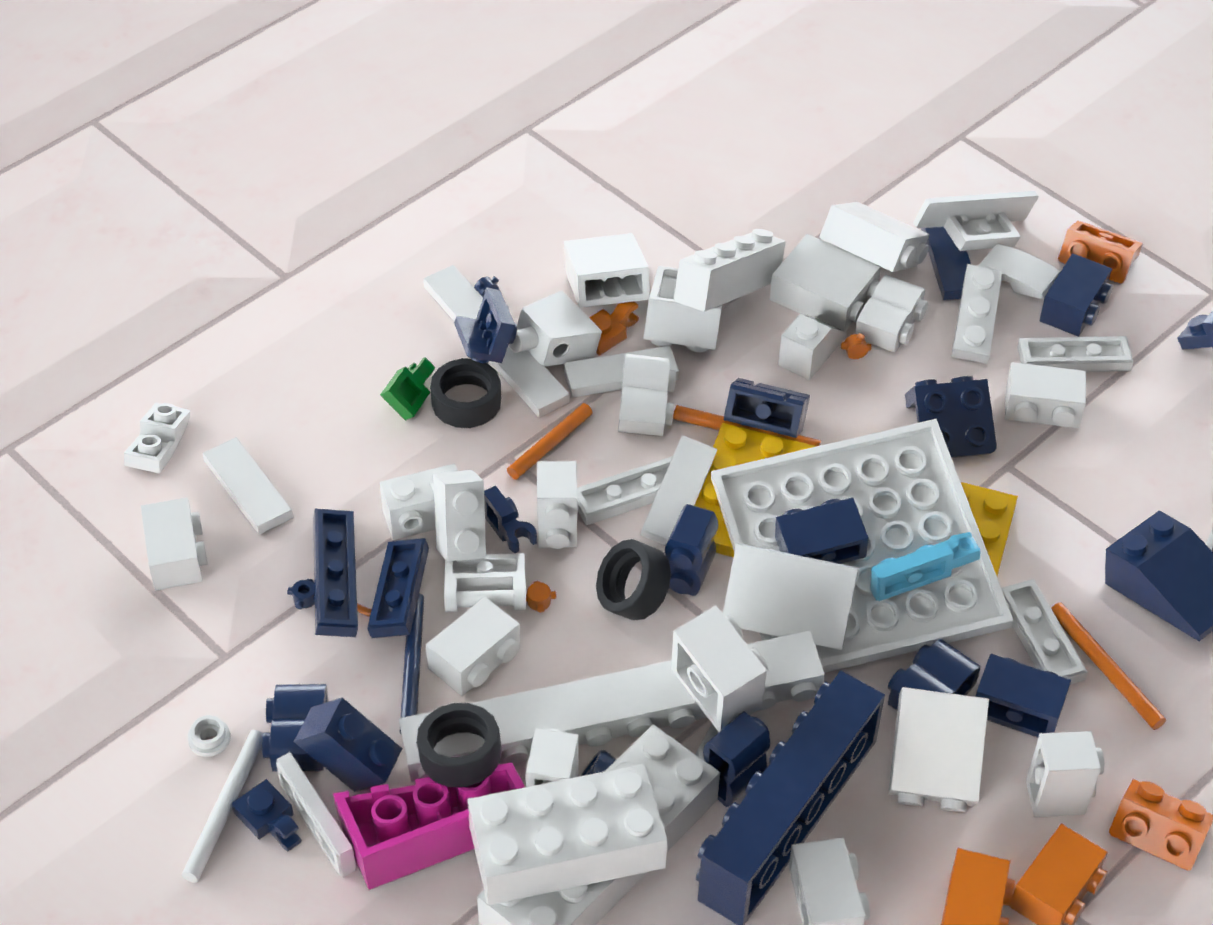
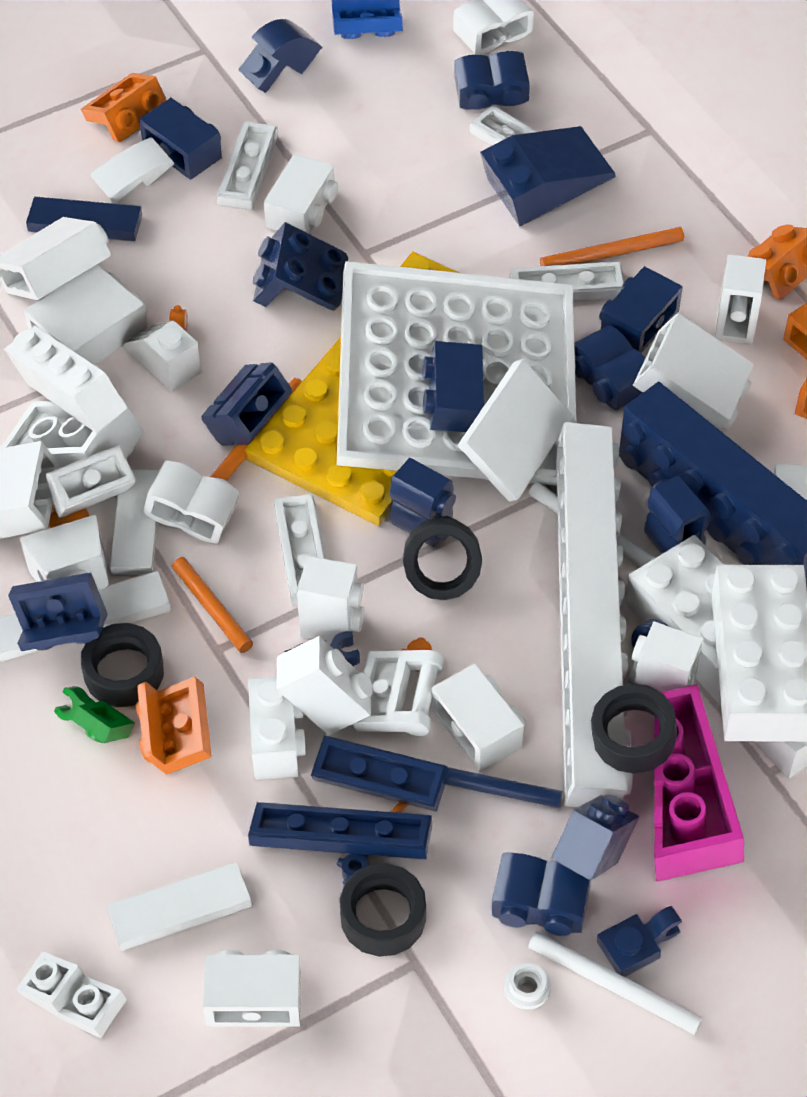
camera: 75 degrees left, 5 degrees up
(257, 593) = (381, 878): none -> black tyre
(316, 815) = (653, 891): white tile -> none
(411, 435) = (173, 725): none -> orange bracket
(631, 316) = (90, 481): none -> white slope
(679, 487) = (329, 503): white tile -> none
(718, 667) = (615, 488): white brick -> none
(891, 313) = (156, 280): white brick -> none
(923, 566) = (508, 317): medium azure hinge -> none
(977, 314) = (174, 216): white plate -> none
(978, 219) = (60, 178): white bracket -> none

